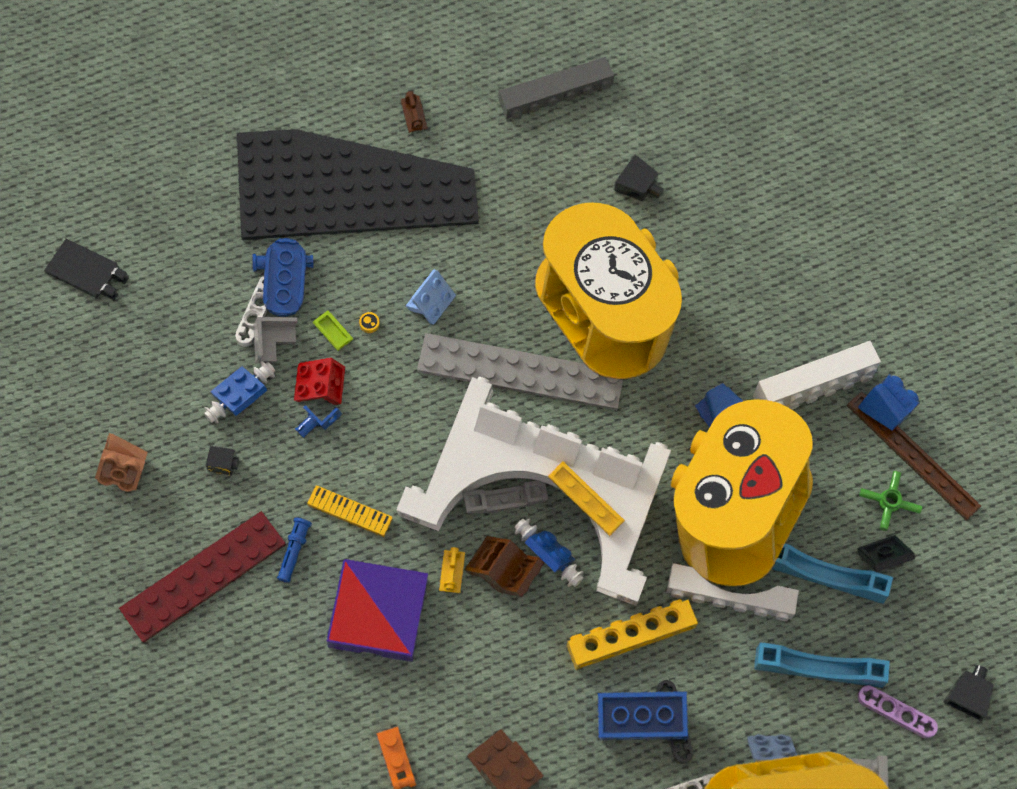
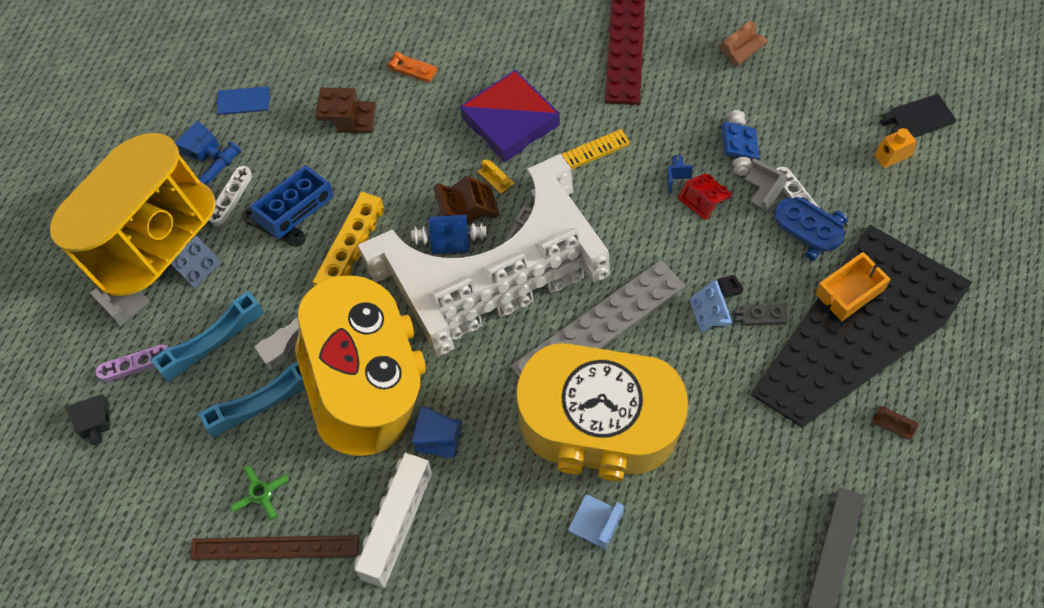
camera: 140 degrees right, 5 degrees down
(140, 261) = (895, 148): none -> light orange torso
(222, 460) = (696, 101): black brick -> none
(296, 540) = (600, 106): blue pin -> none
(326, 200) = (851, 286): none -> light orange piece
(332, 330) = (740, 230): lime tile -> none
(369, 322) = (726, 258): yellow tile -> none
(396, 299) = (730, 286): none -> black plate
(401, 261) = (761, 315): none -> dark grey hinge
(586, 498) = (452, 258): yellow tile -> none
(638, 180) = (688, 543): black torso -> none
(680, 247) = (596, 521): none -> light blue bracket
(885, 553) = (228, 447): black tile -> none
(890, 402) = (321, 555): blue piece -> none

